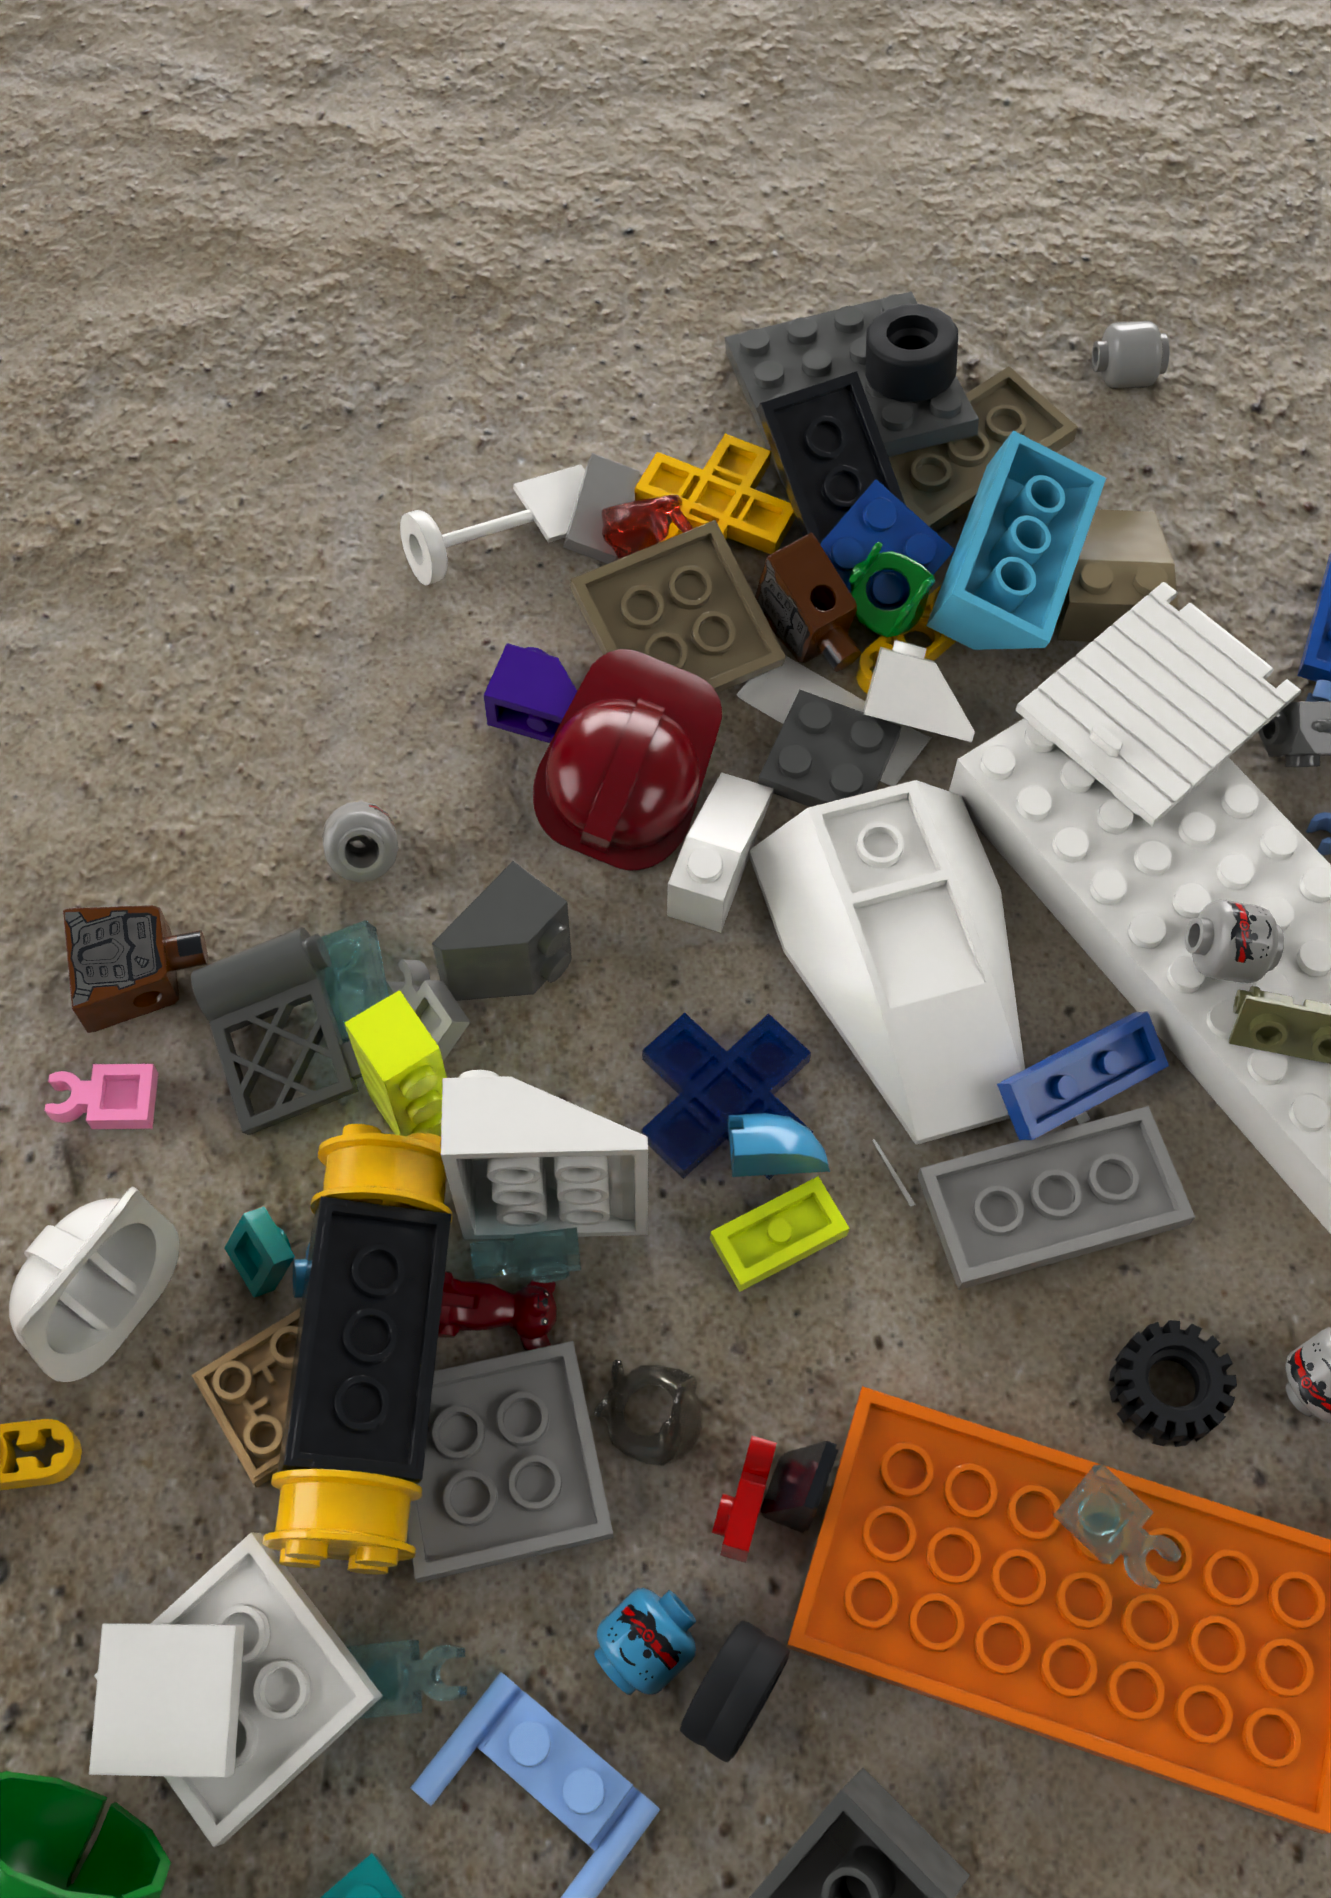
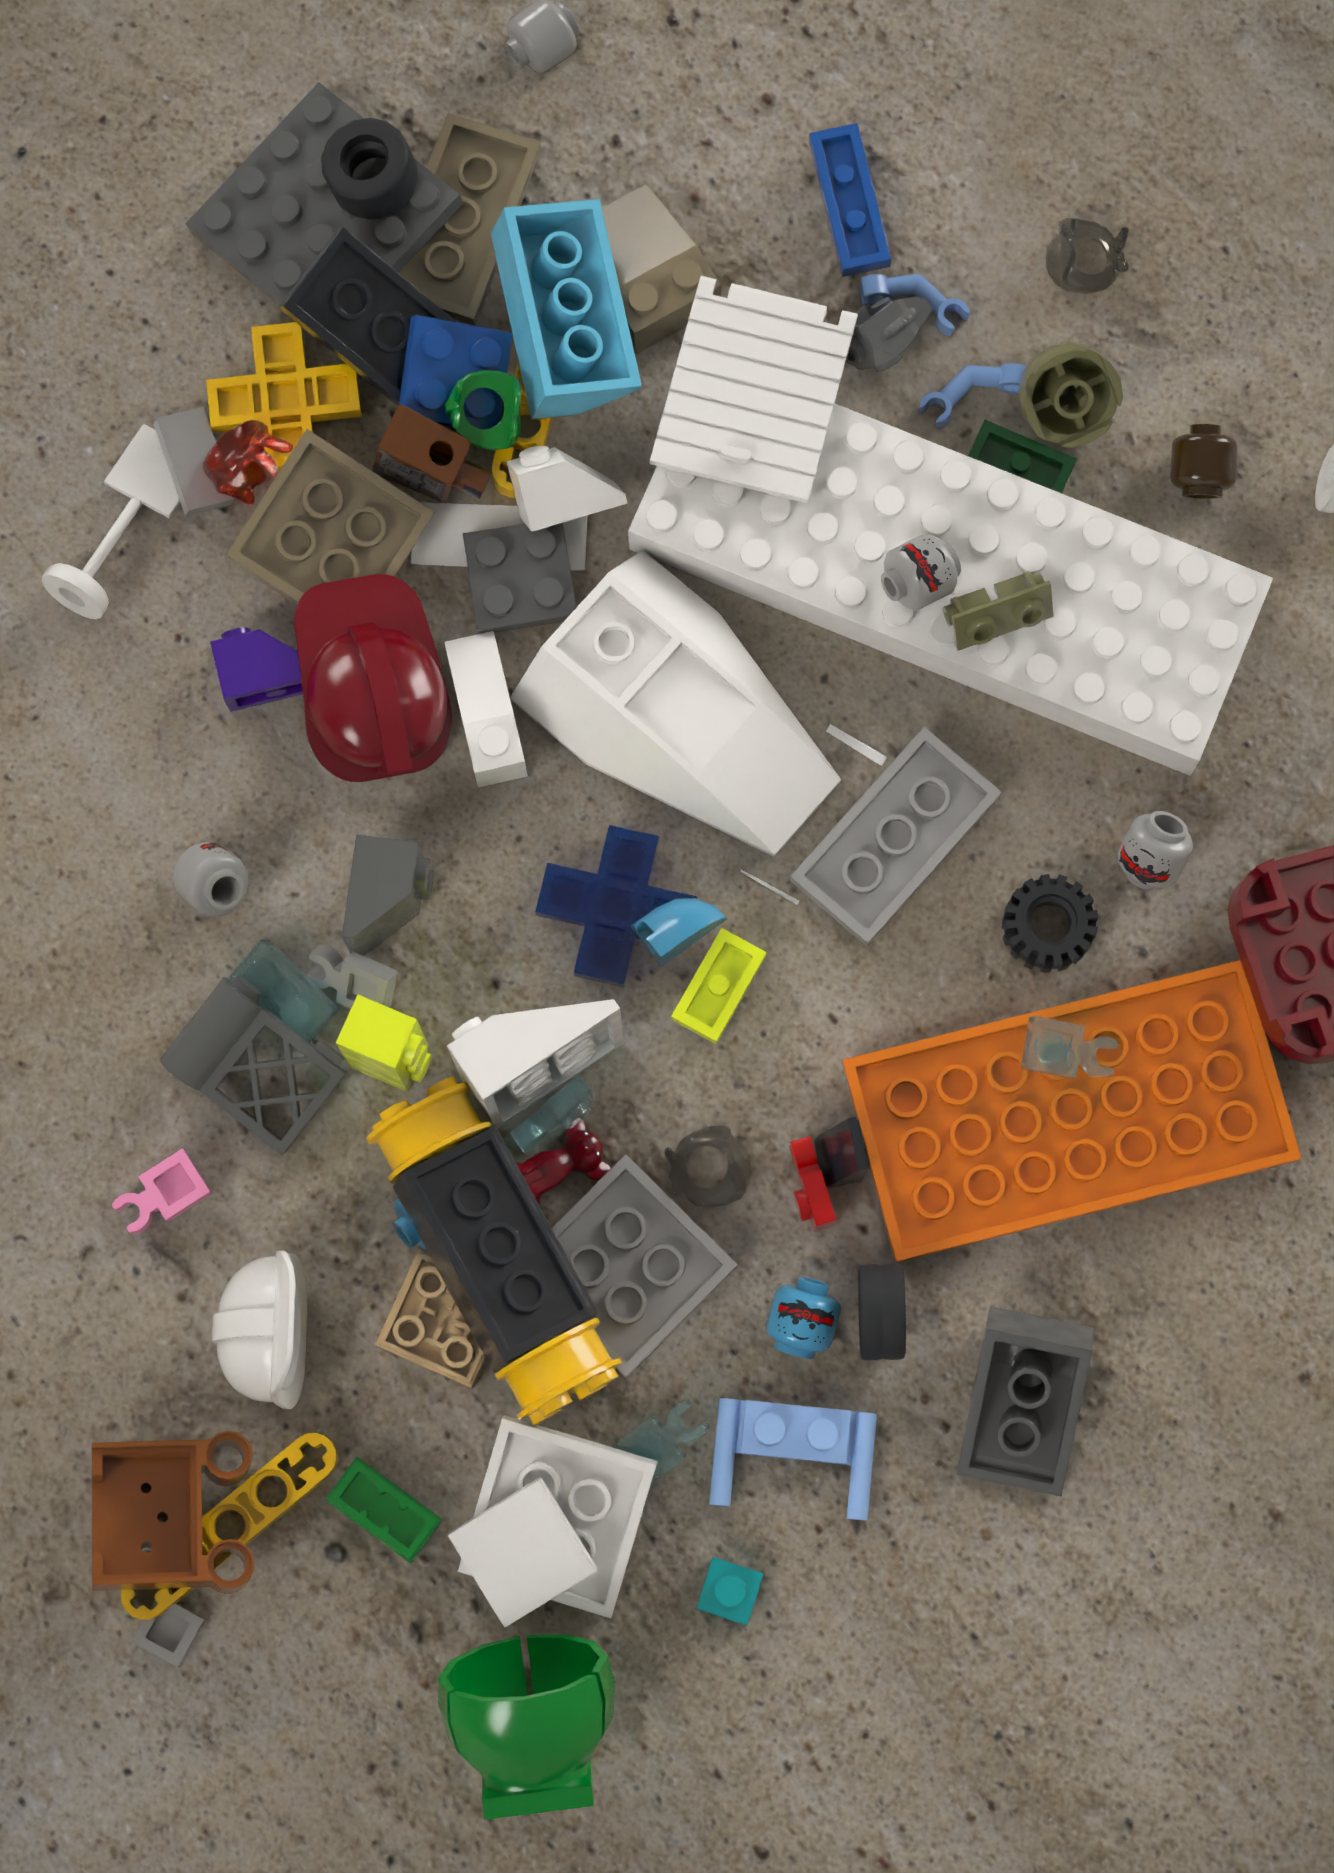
camera: 30 degrees left, 15 degrees up
(73, 1556) = (384, 1510): none -> green plate
(125, 962) = (100, 1083): torso -> none
(259, 1251) = (361, 1232): teal plate -> none
(1082, 1075) = (865, 731): blue plate -> none

